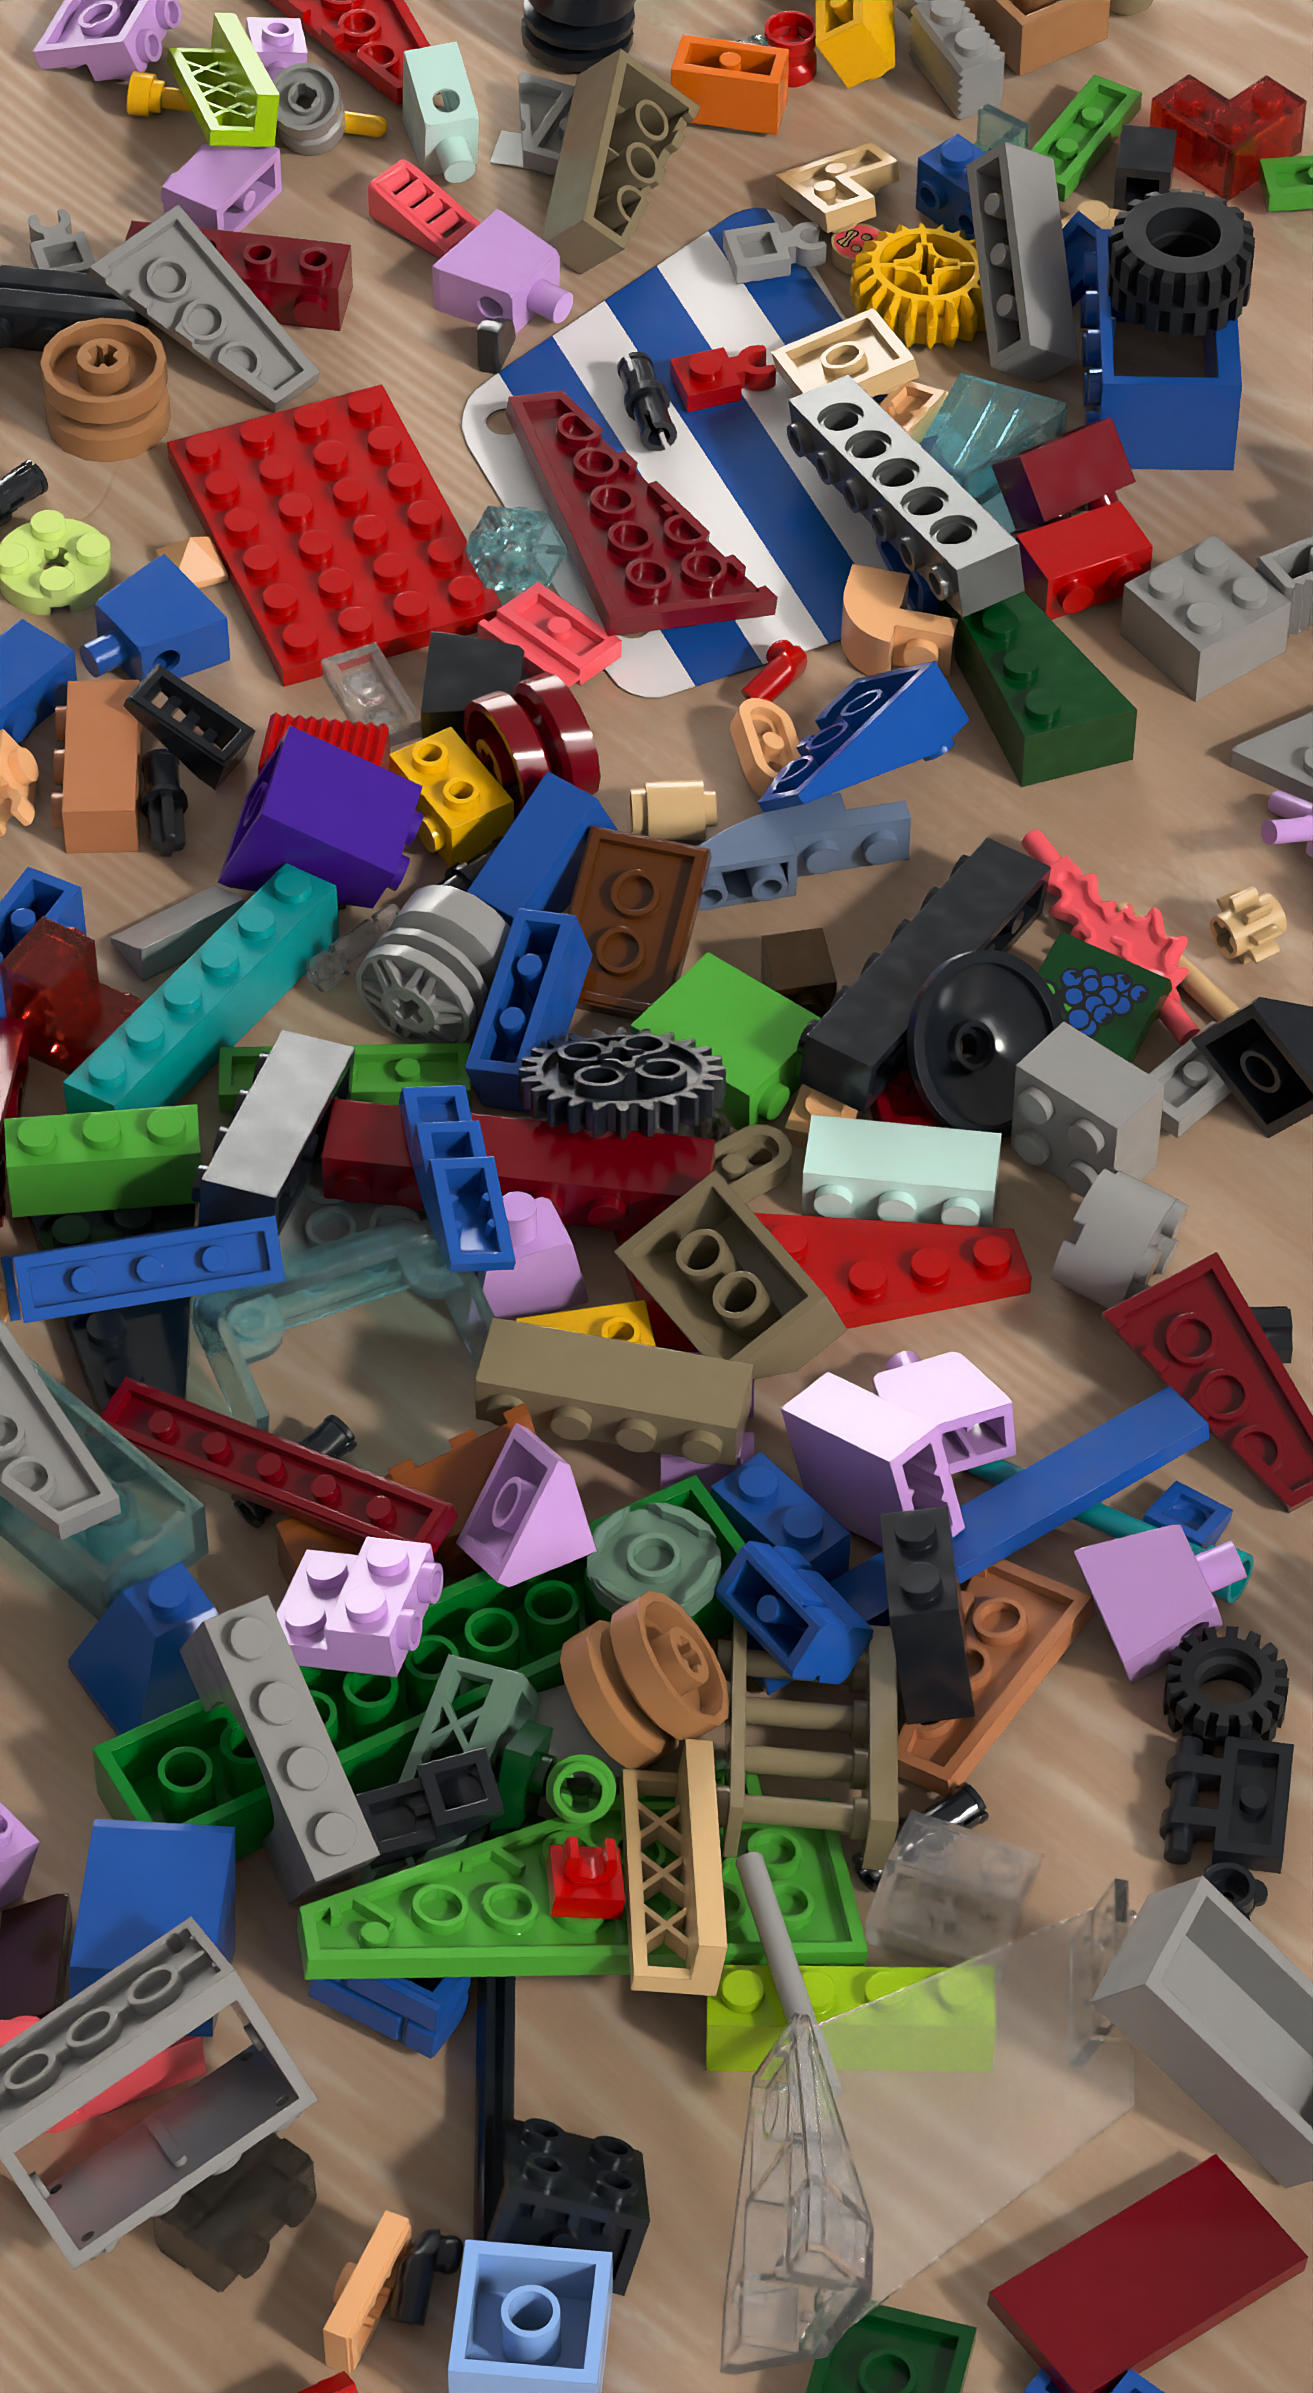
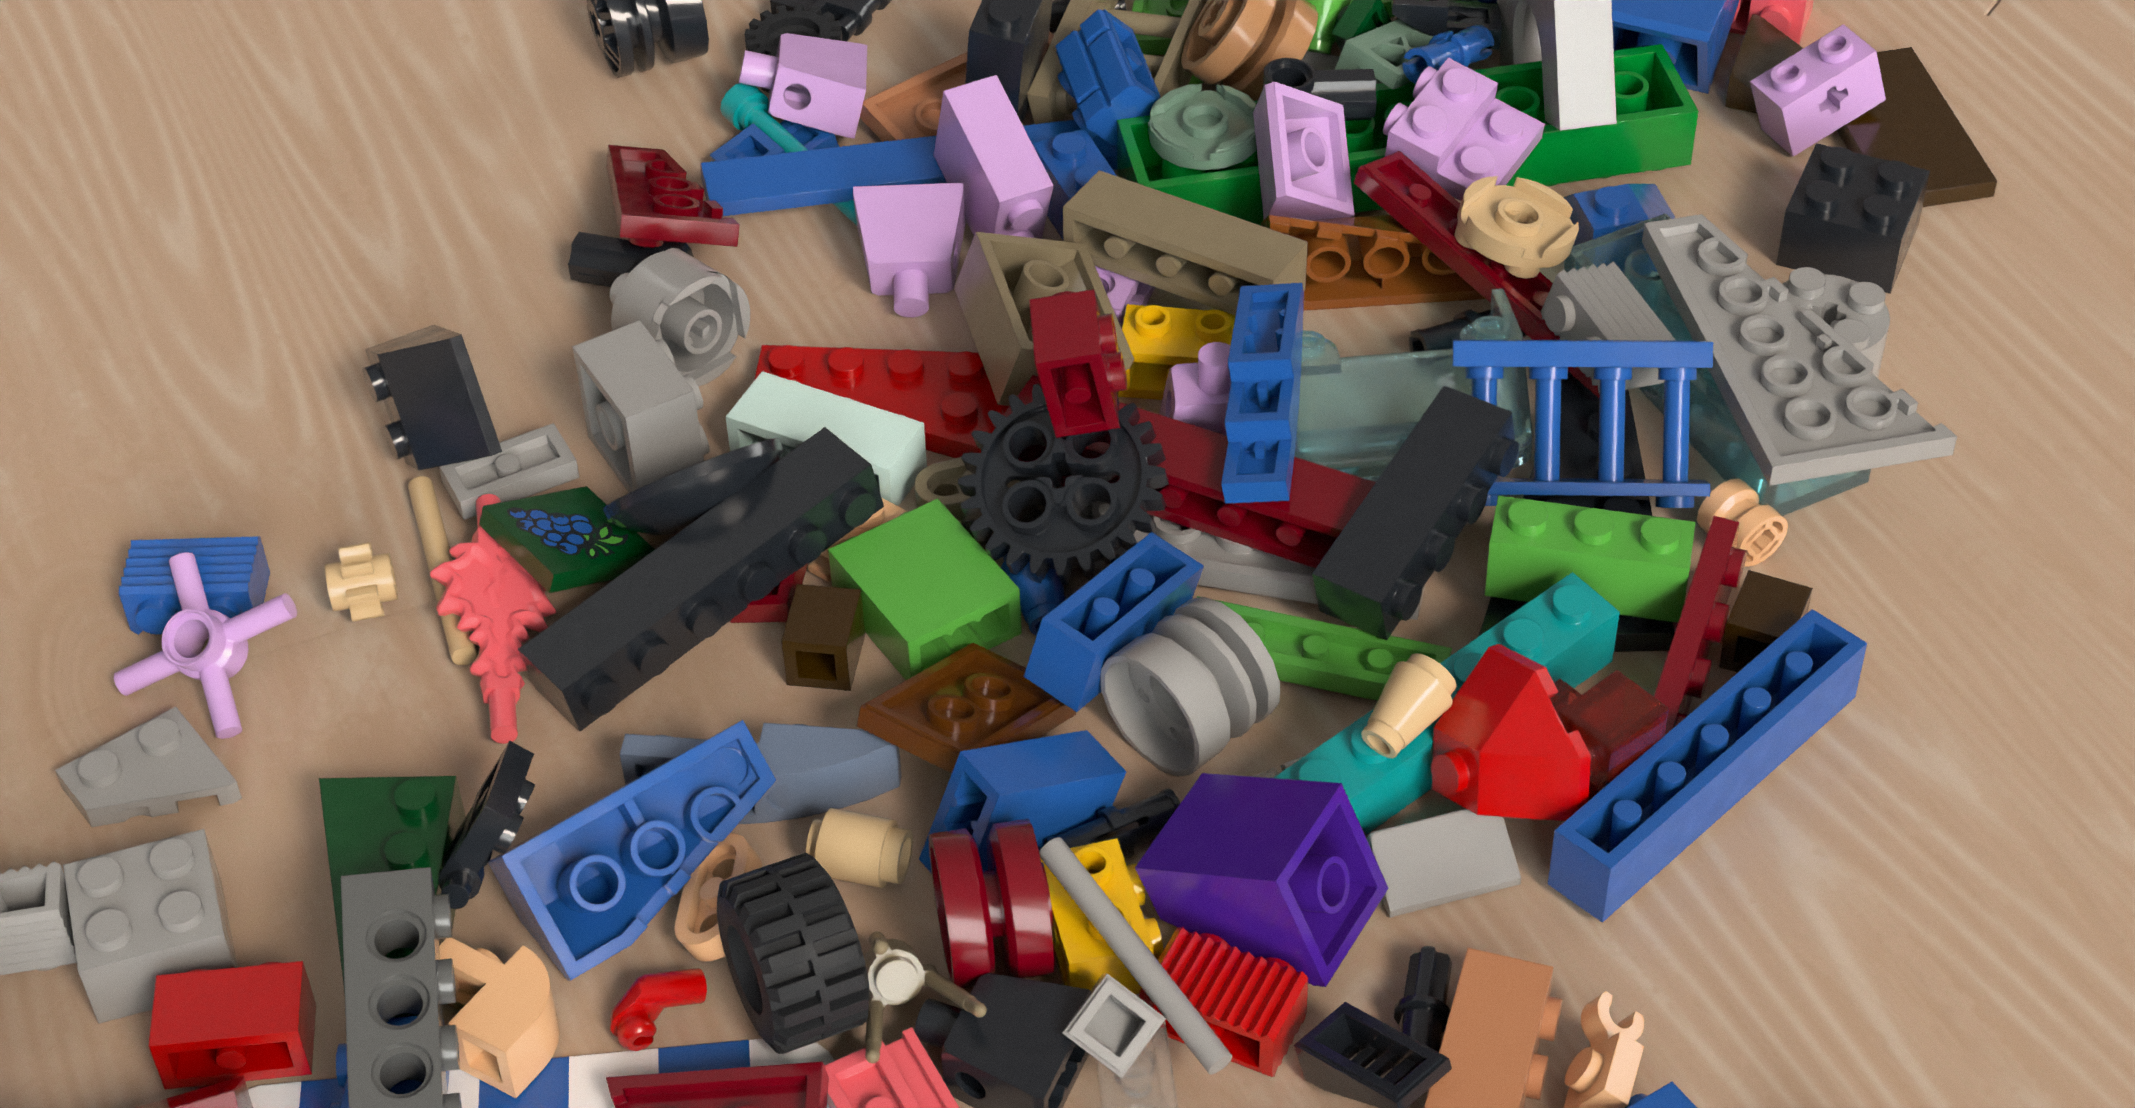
camera: 160 degrees left, 5 degrees down
(136, 1388) = (1603, 307): none -> light grey brick
(137, 941) = (1505, 745): none -> red slope
(225, 921) = (1408, 704): none -> tan cone
(266, 1517) = (1491, 226): none -> tan plate
(397, 695) = (1113, 1025): none -> light grey slope
(398, 723) = (1135, 956): none -> light grey bar
(401, 1717) = (1461, 47): none -> blue pin
(534, 1604) = (1348, 87): none -> black piece
(599, 706) = (897, 978): none -> dark tan plant
(622, 1042) = (1077, 362): none -> dark red brick
(668, 665) = (793, 953): none -> black tyre
(961, 675) = (488, 825): none -> black plate

